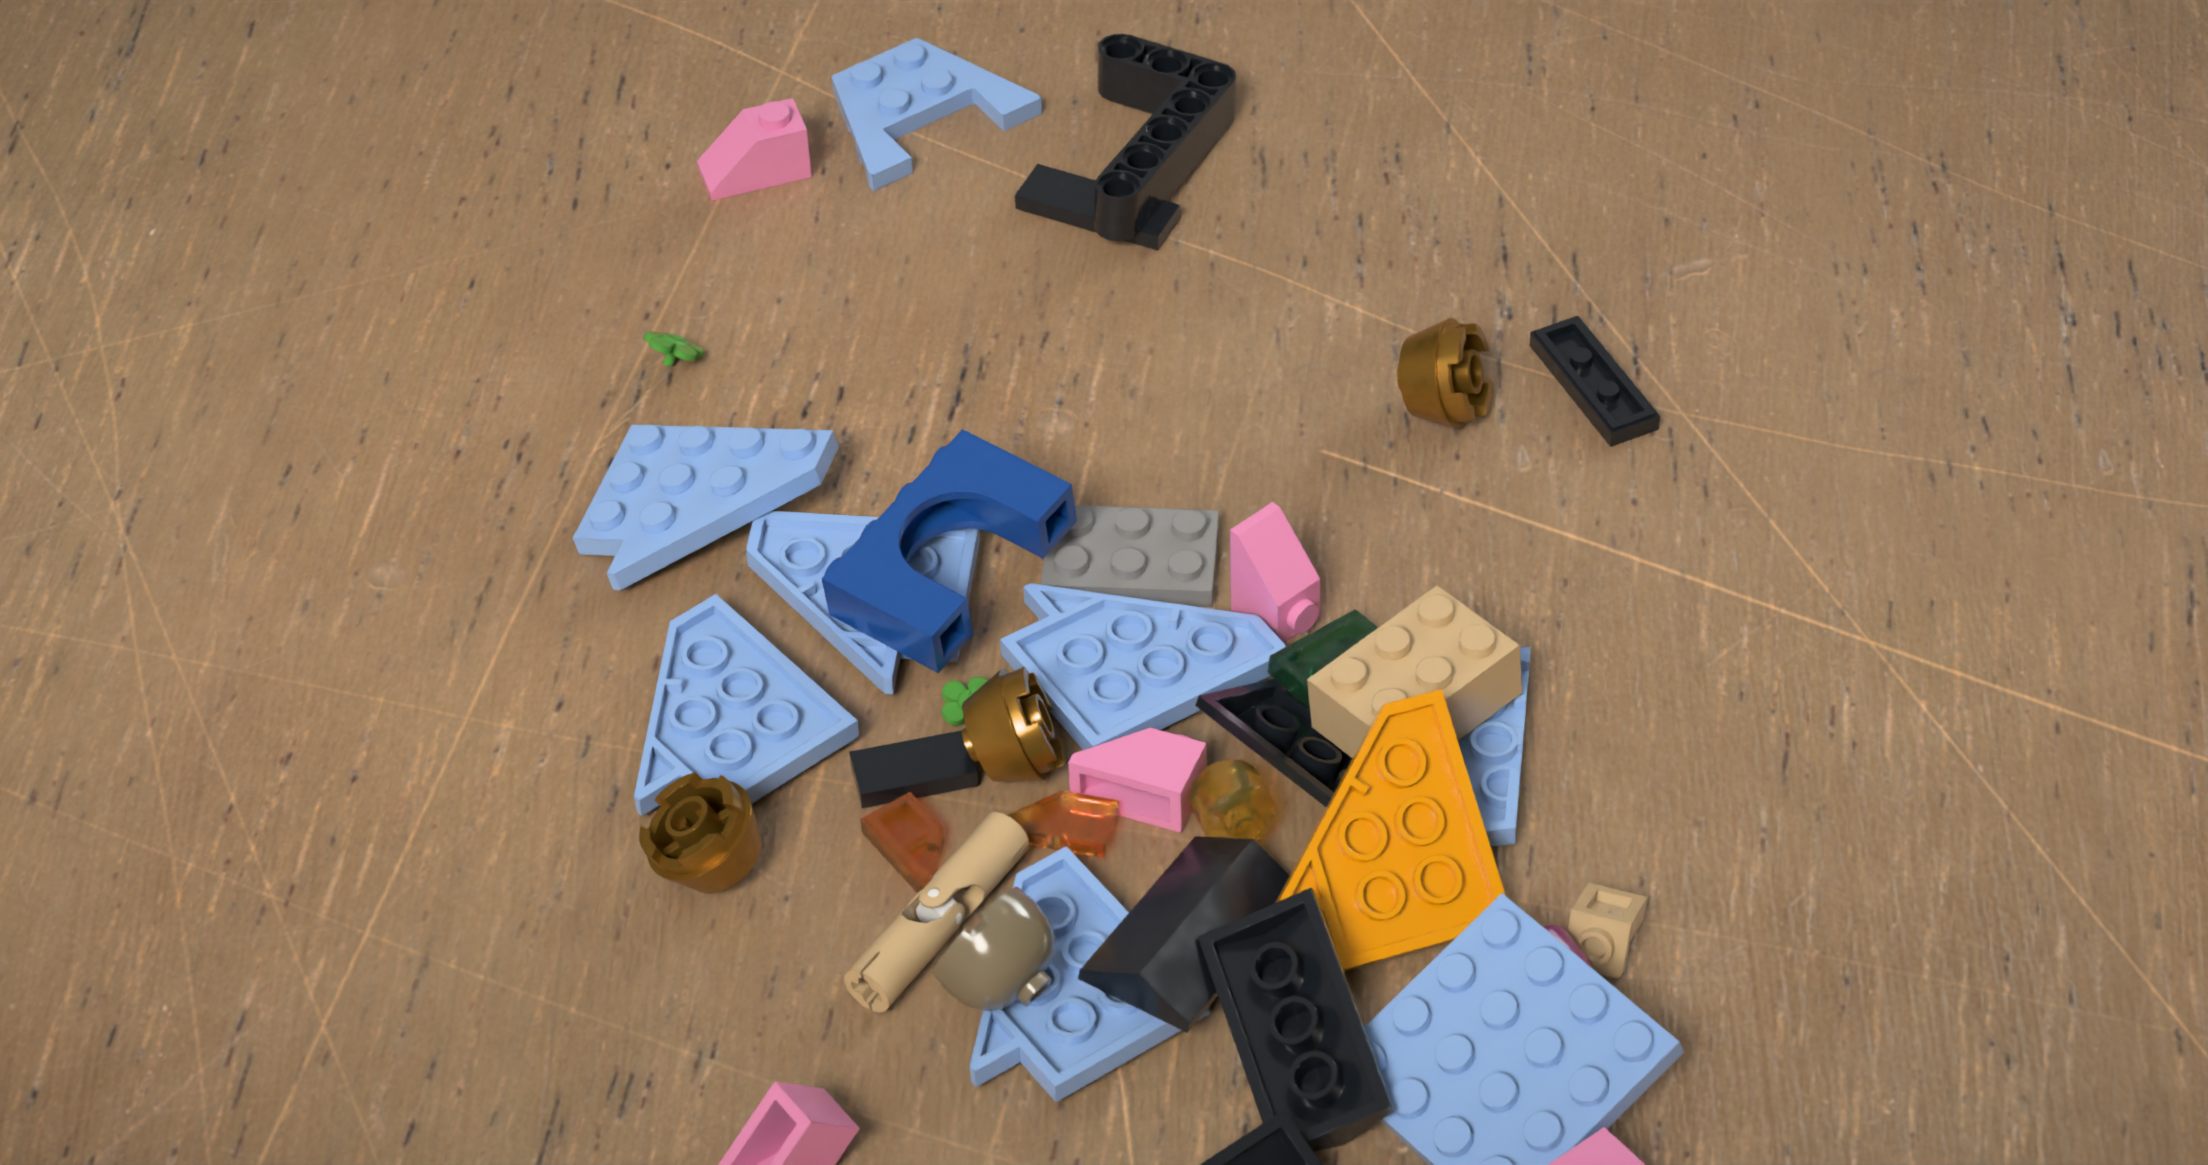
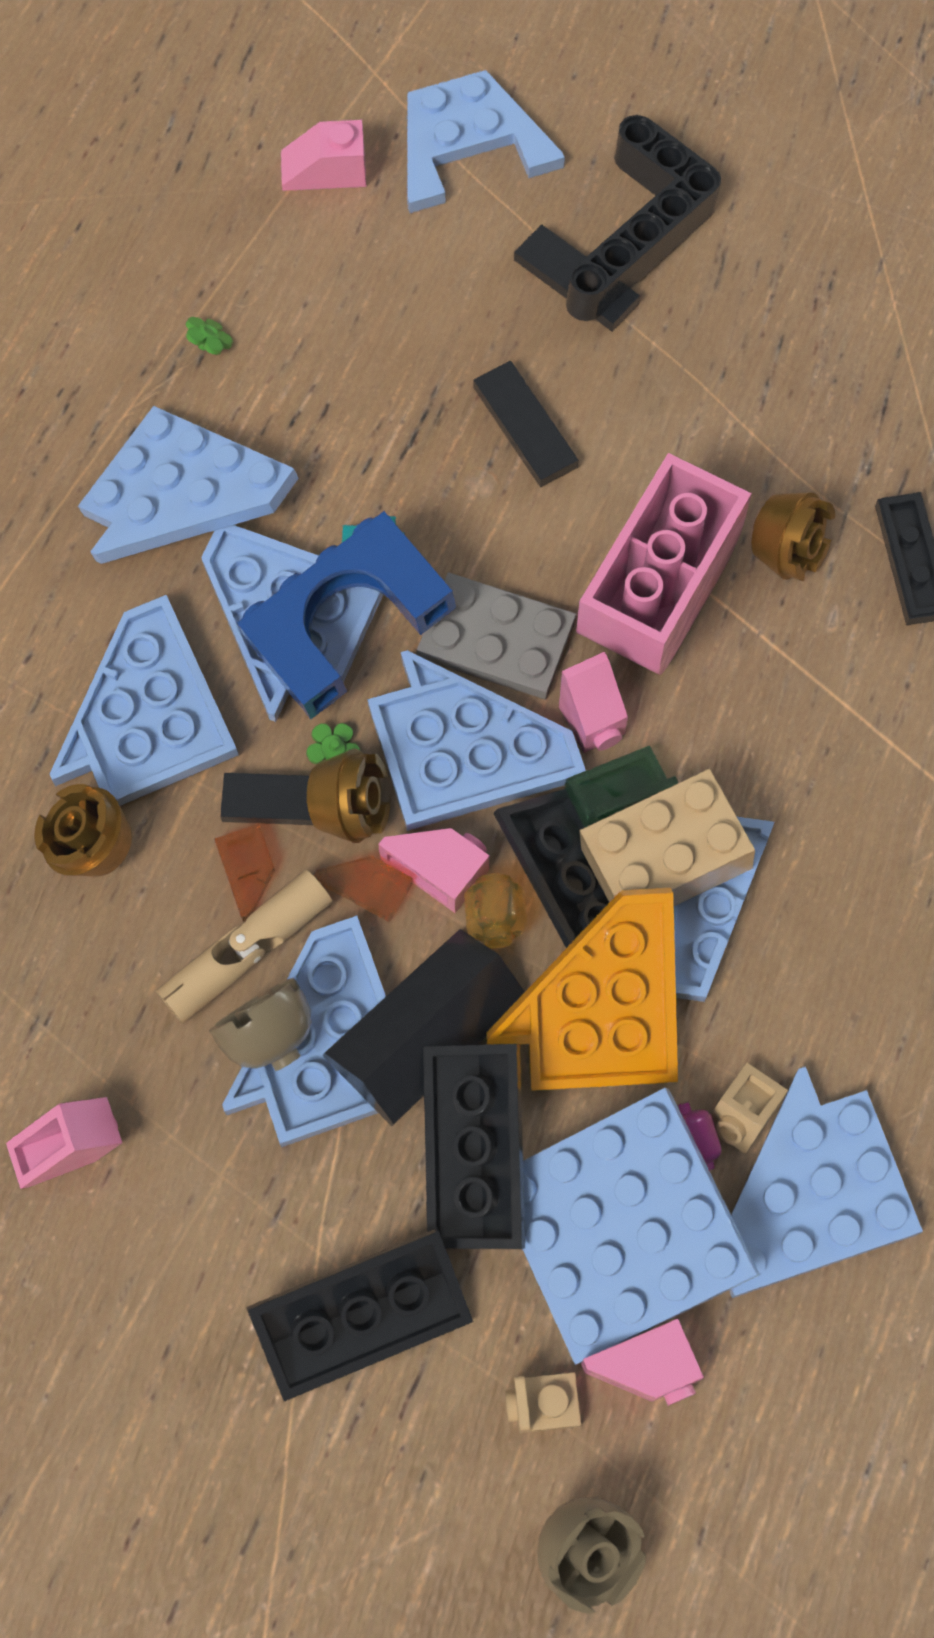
camera: 15 degrees right, 25 degrees up
(1089, 351) = (525, 423): none -> black tile
(1310, 416) = (663, 564): none -> bright pink brick
(1728, 988) = (820, 1188): none -> light blue wing

